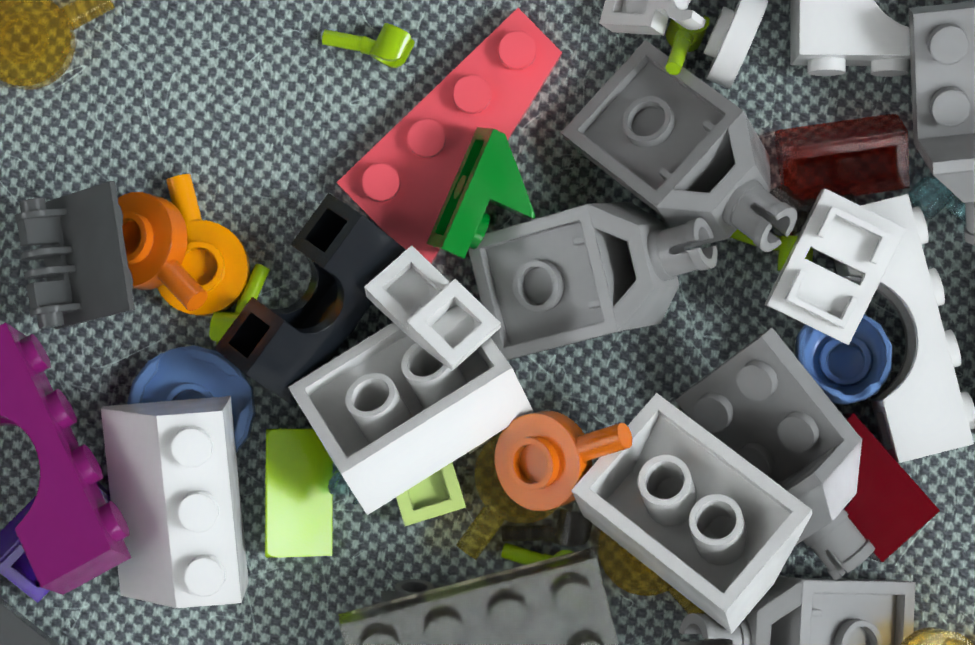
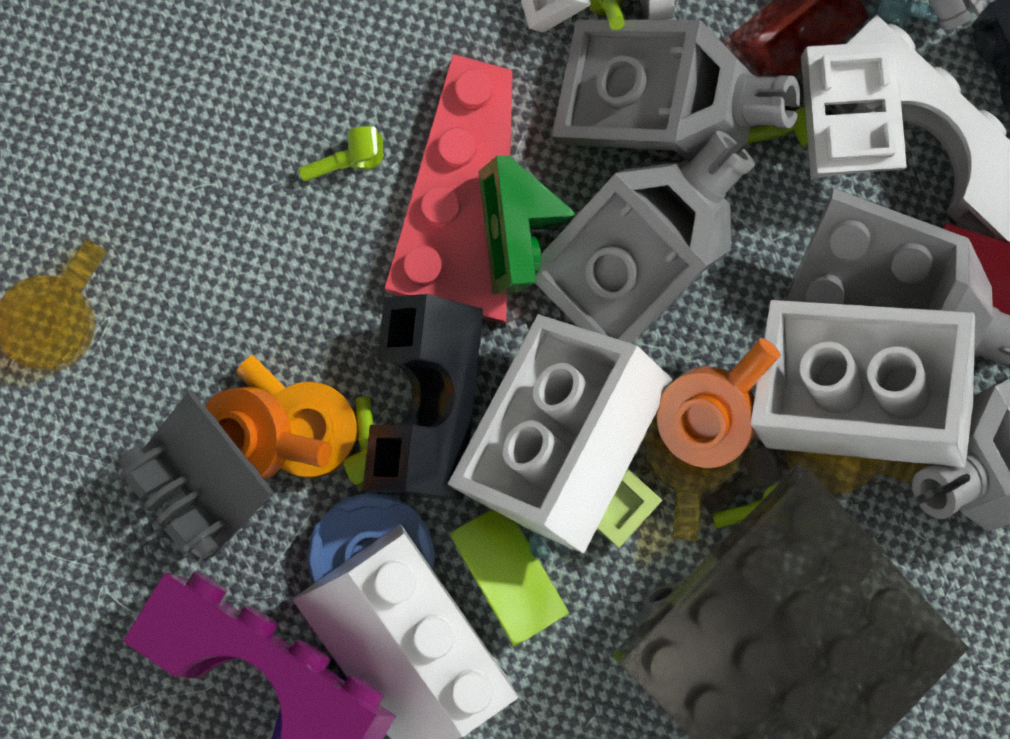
camera: 25 degrees left, 5 degrees down
(431, 309) = (531, 343): white slope -> none
(847, 371) = (917, 191): medium blue hair -> none

